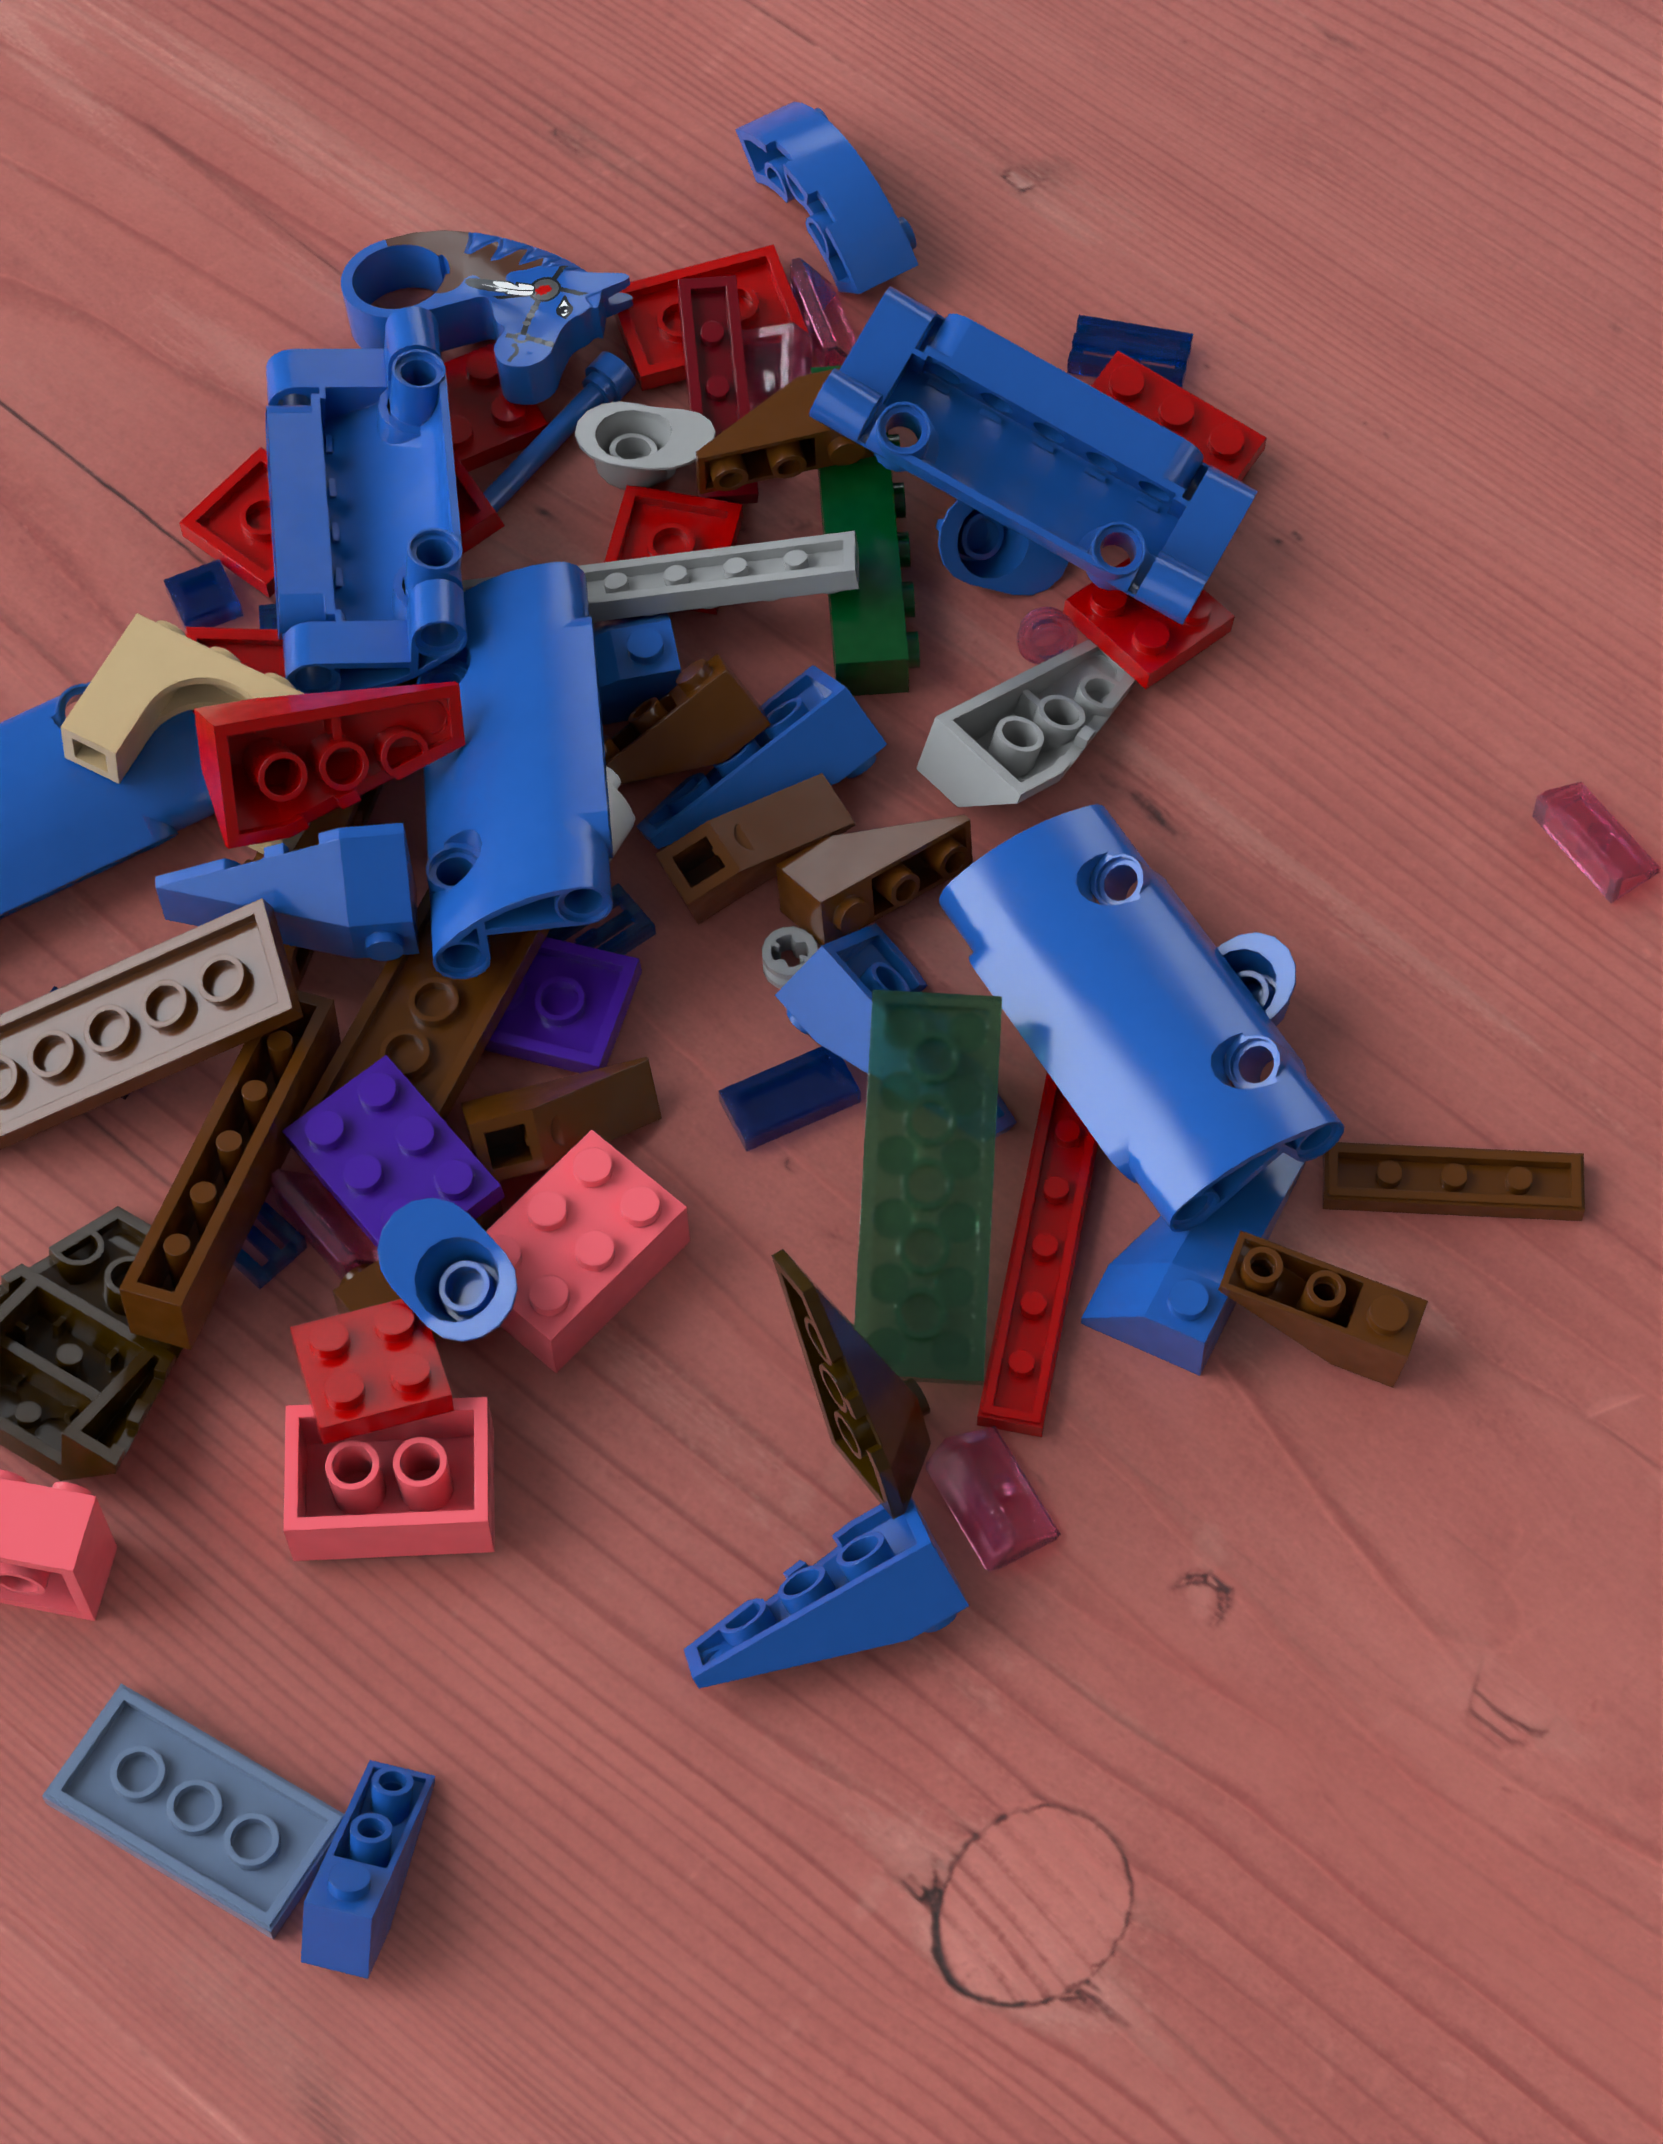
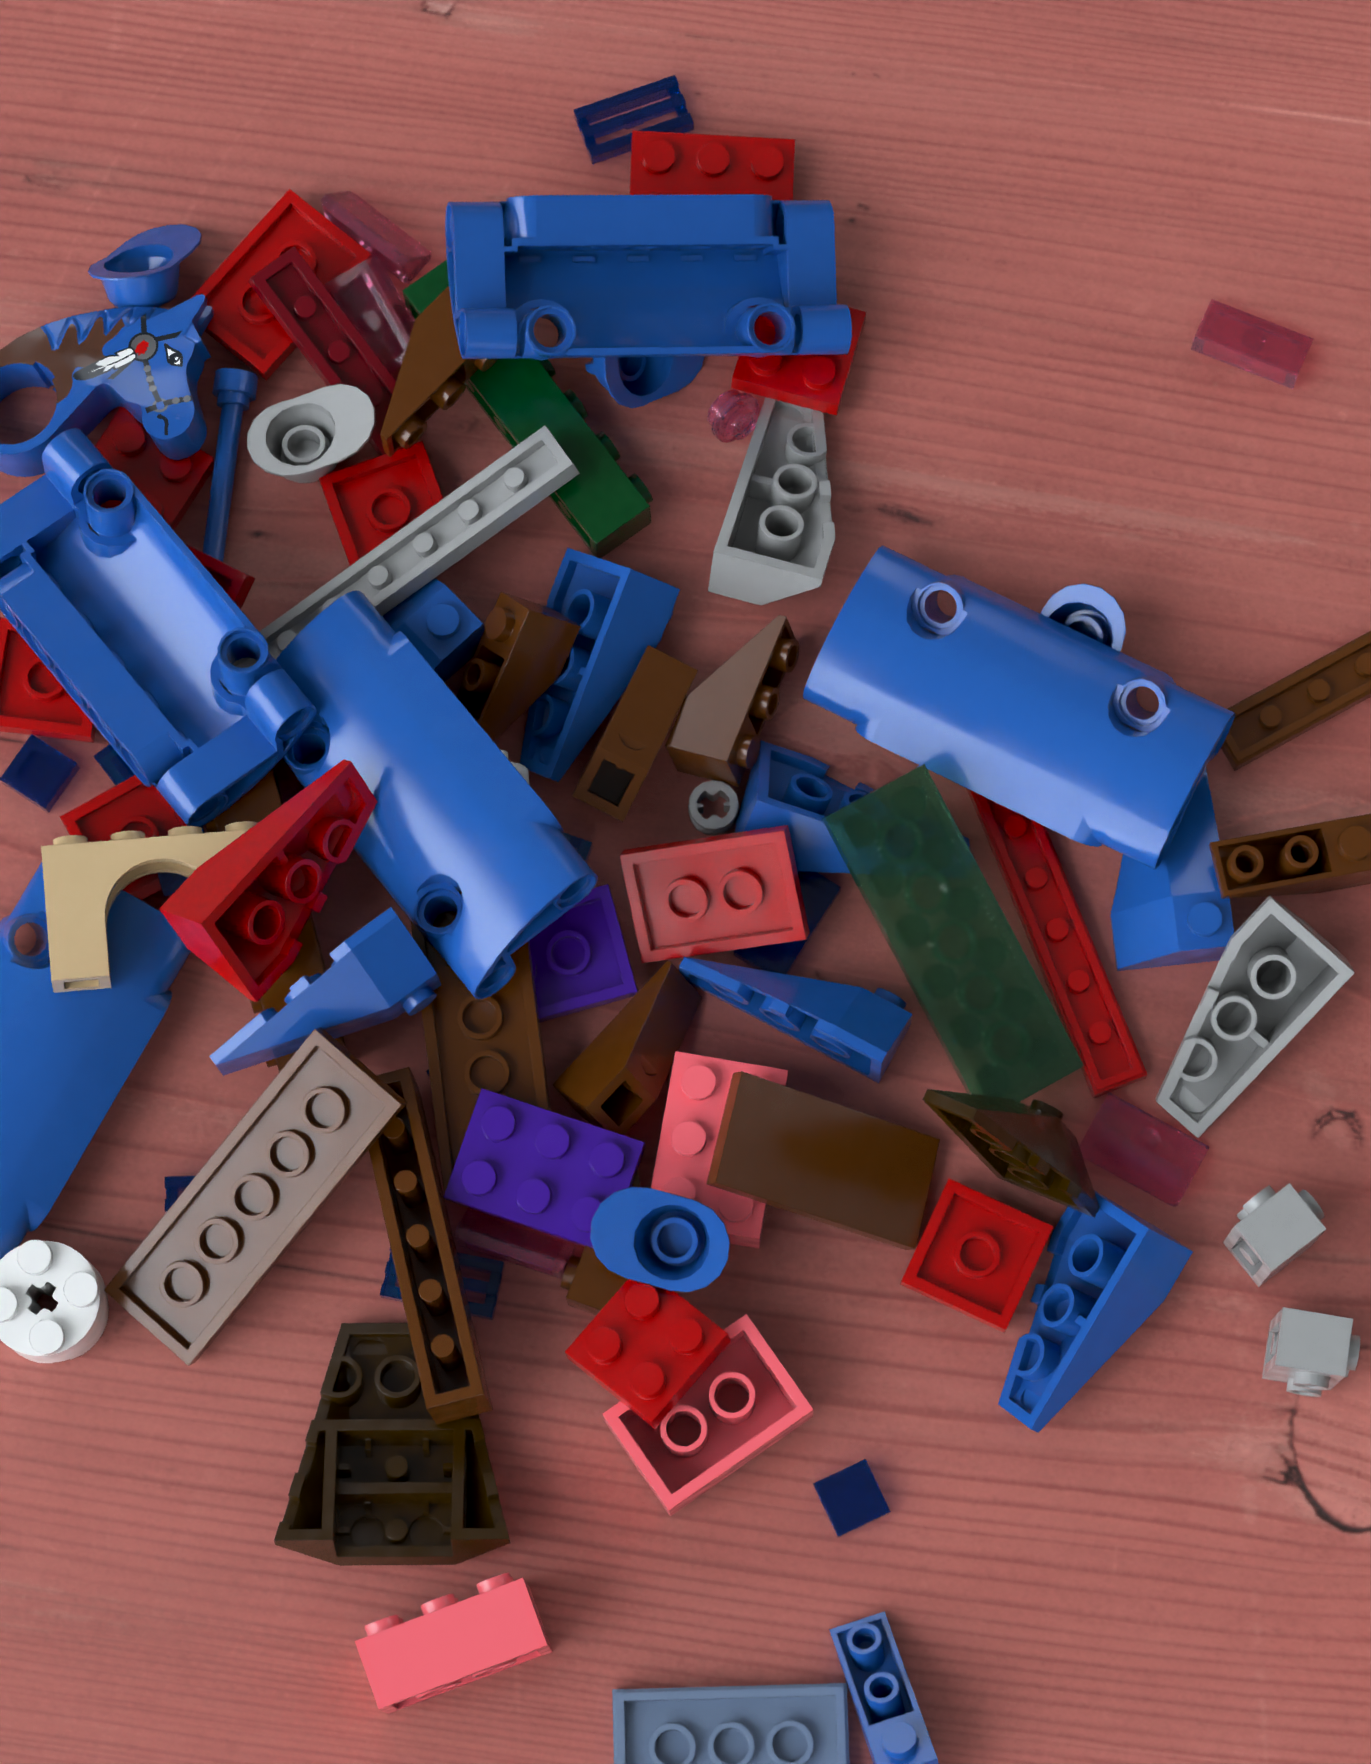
camera: 30 degrees left, 15 degrees up
(477, 1649) = (851, 1498): none -> clear blue tile
(597, 243) = (147, 266): none -> blue piece
(663, 1309) = (823, 1161): none -> reddish brown tile
(731, 1019) = (714, 894): none -> red plate
(757, 1494) = (976, 1255): none -> red plate
(760, 1187) = (830, 1017): none -> blue wedge
(850, 216) = (342, 133): blue brick -> none
(1021, 1766) = (1309, 1351): none -> light grey brick
(1064, 1634) = (1274, 1231): none -> light grey brick
(1194, 1410) = (1257, 1001): none -> light grey wedge

